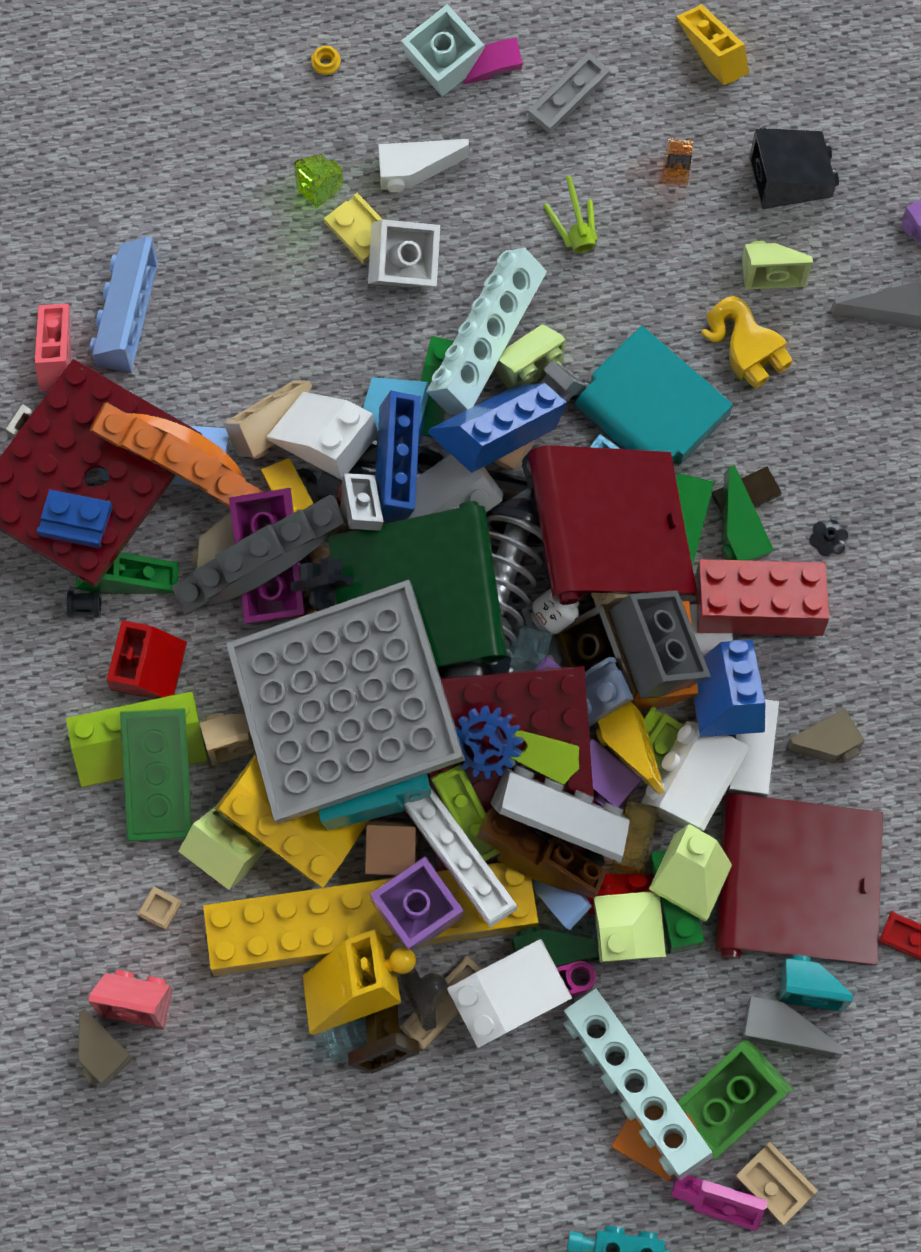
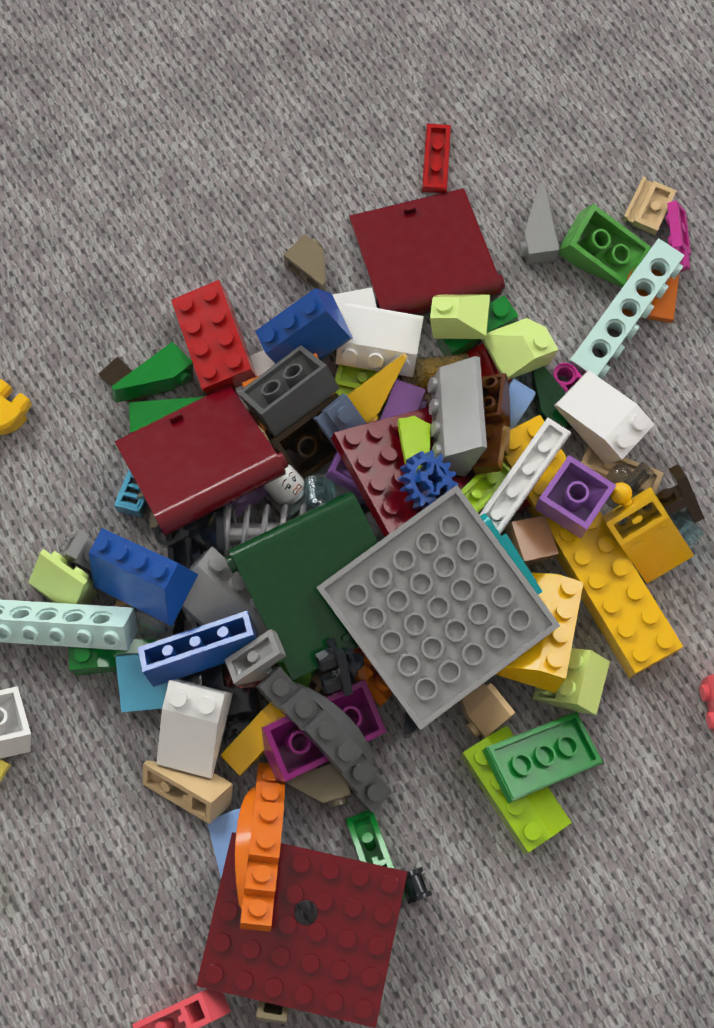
camera: 110 degrees left, 0 degrees up
(74, 518) = (356, 912): blue plate -> none
(125, 305) = (120, 965): light blue slope -> none
(145, 661) = (448, 806): red slope -> none
(159, 908) = (643, 715): tan tile -> none
(652, 399) = (69, 476): teal piece -> none
(811, 985) = (505, 219): teal slope -> none
(828, 543) = (142, 314): black plant -> none

